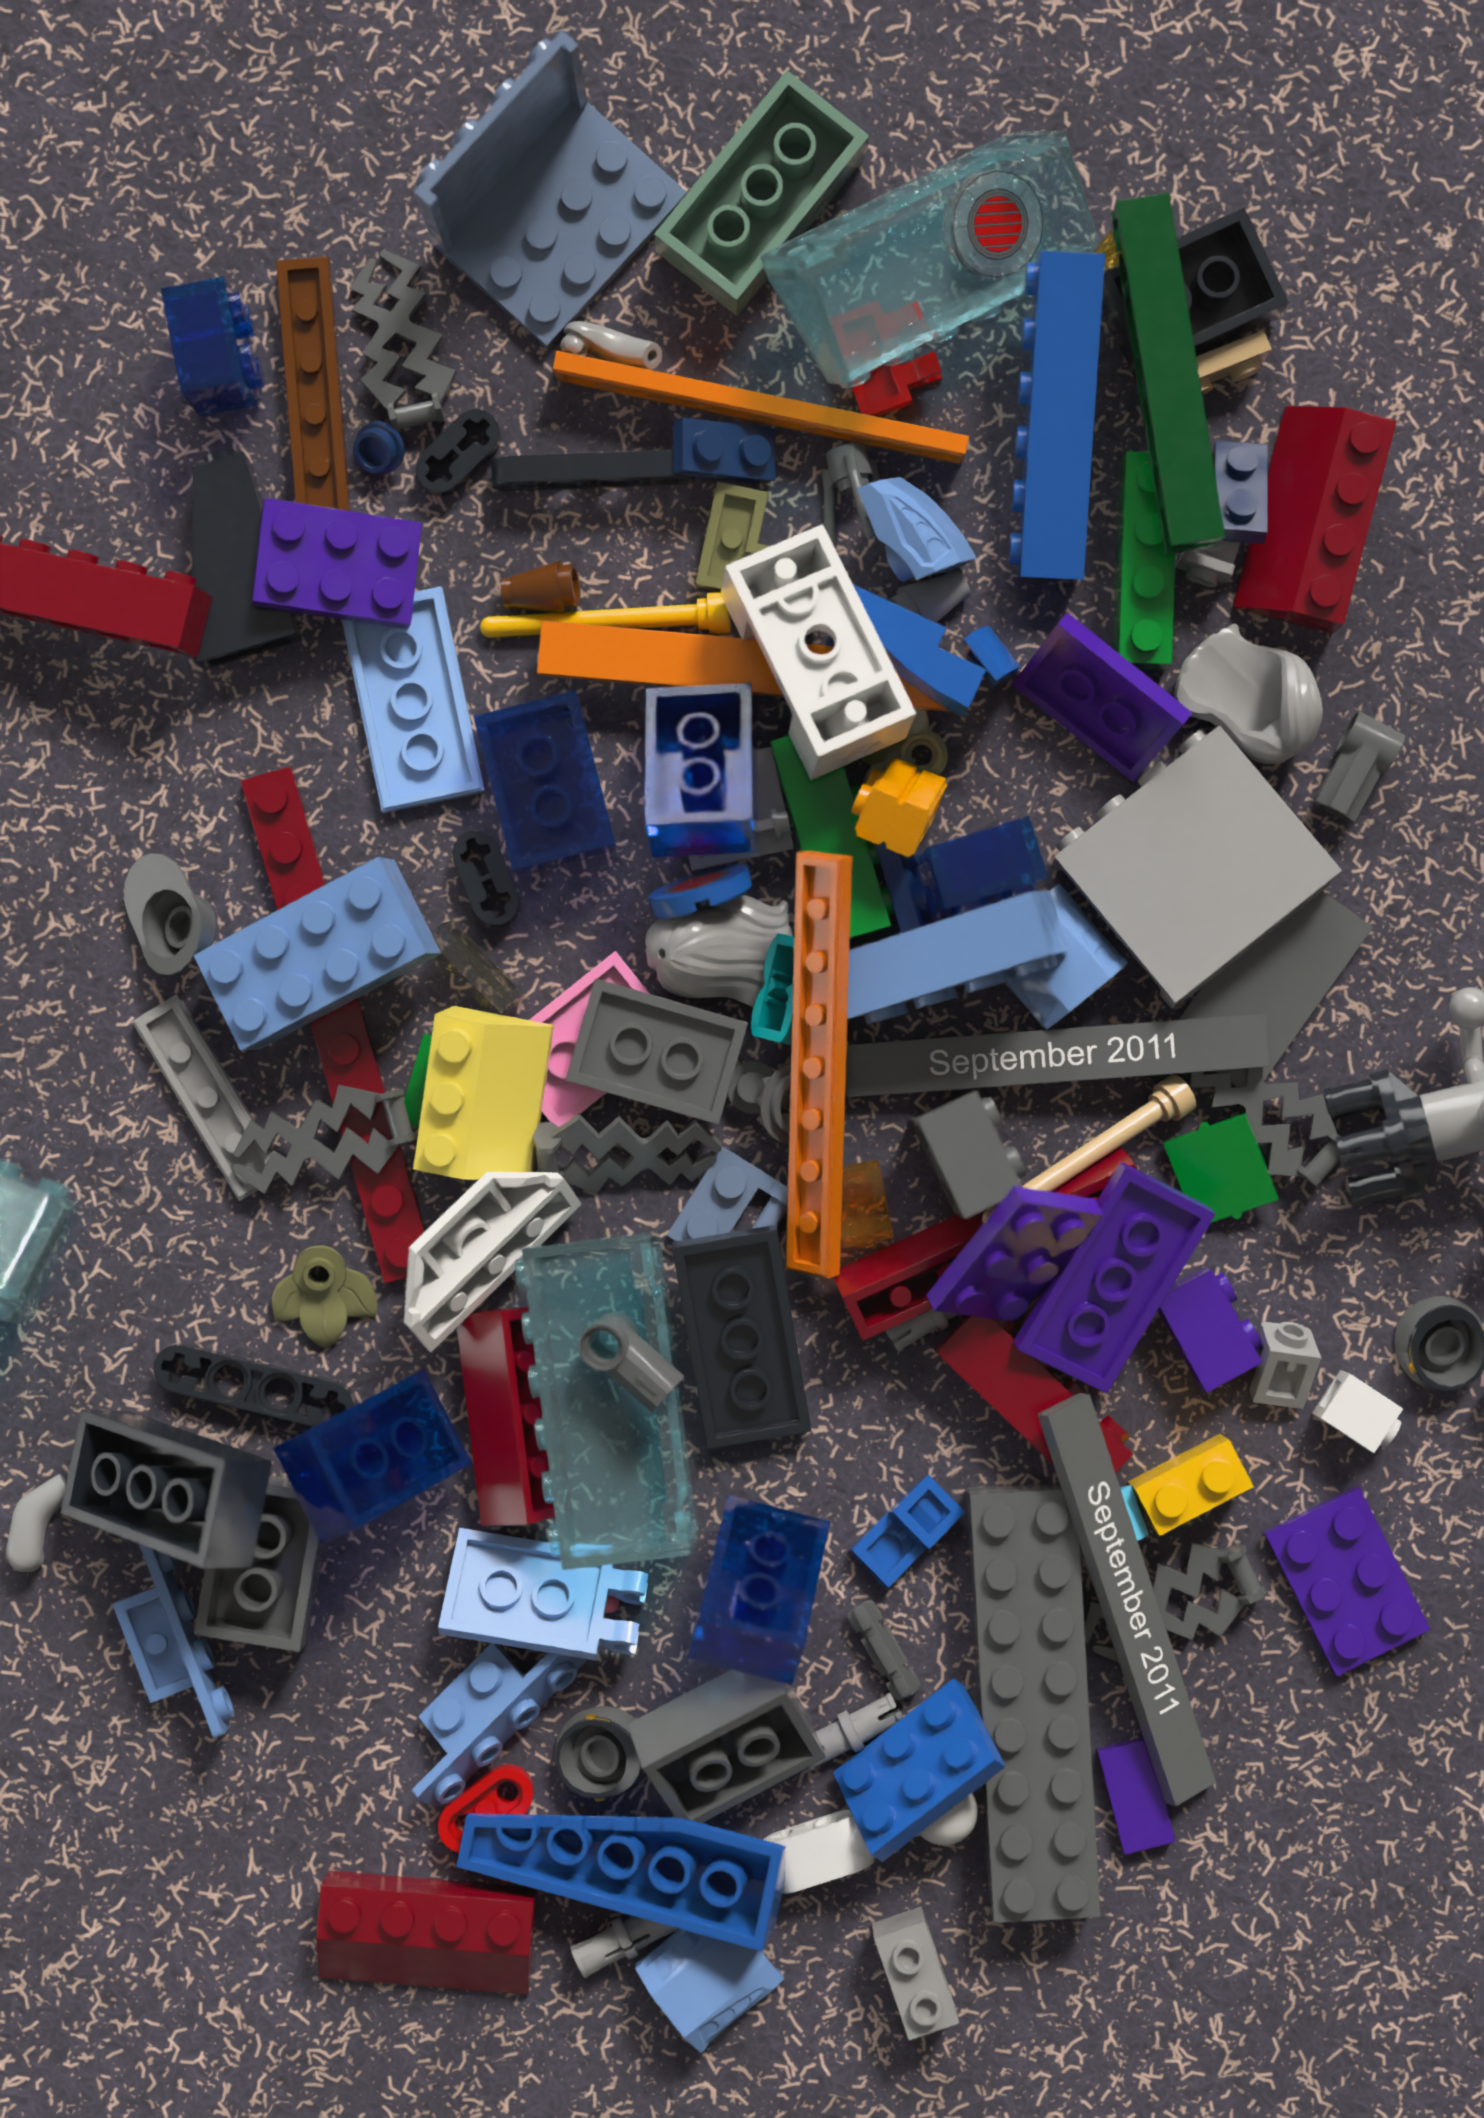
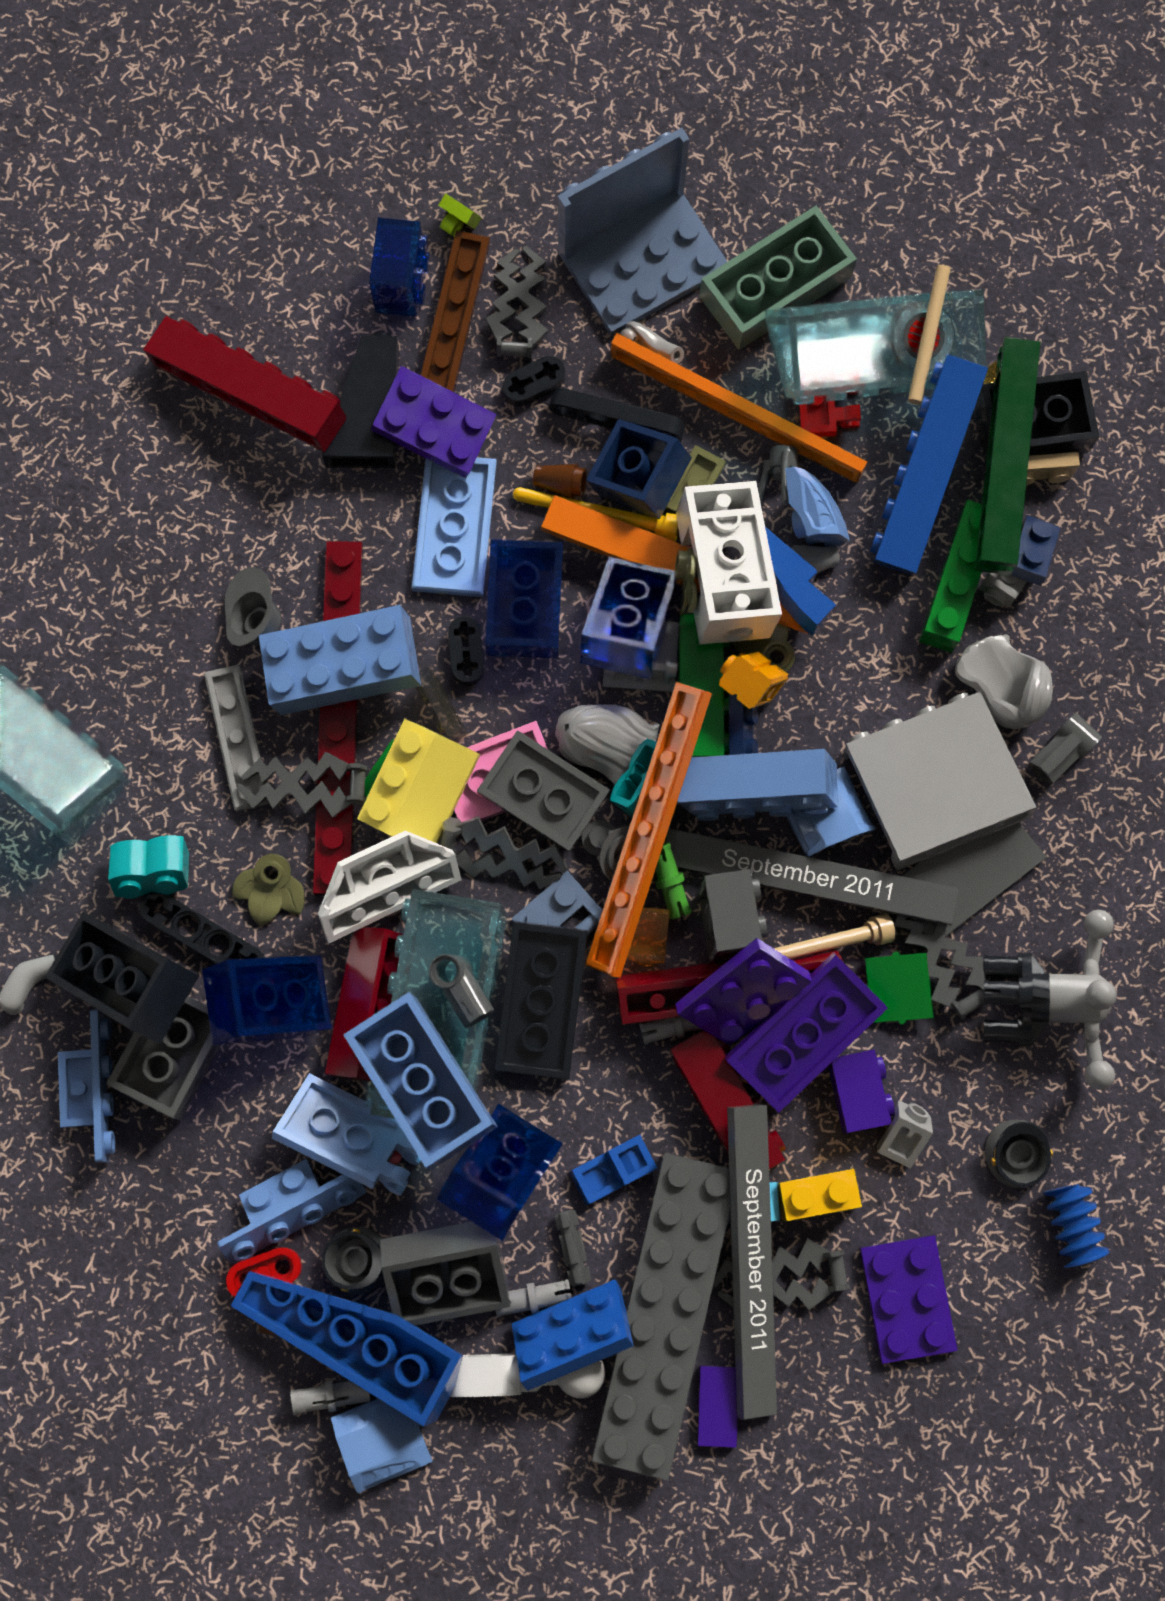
camera: 10 degrees right, 10 degrees down
(148, 1318) = (148, 866): none -> teal brick
(271, 236) = (457, 215): none -> lime tile
(378, 448) = (484, 362): dark blue plate -> none
(426, 1932) = (193, 1349): dark red slope -> none
(617, 1513) = (420, 1081): none -> medium blue brick
(649, 544) = (639, 468): none -> dark blue brick
(712, 885) = (604, 697): blue tile -> none
(724, 451) = (705, 427): dark blue plate -> none
(762, 684) = (686, 571): none -> olive plate
(869, 1122) = (670, 883): none -> bright green pin
(915, 1973) = (525, 1484): light grey brick -> none
(984, 867) = (798, 729): clear blue brick -> none
(990, 653) = (844, 609): blue slope -> none
(1005, 222) = (929, 334): none -> tan bar
(1101, 697) = (906, 651): dark purple plate -> none
(1318, 515) = (1079, 580): dark red slope -> none
(1359, 1412) = (949, 1181): white brick -> none

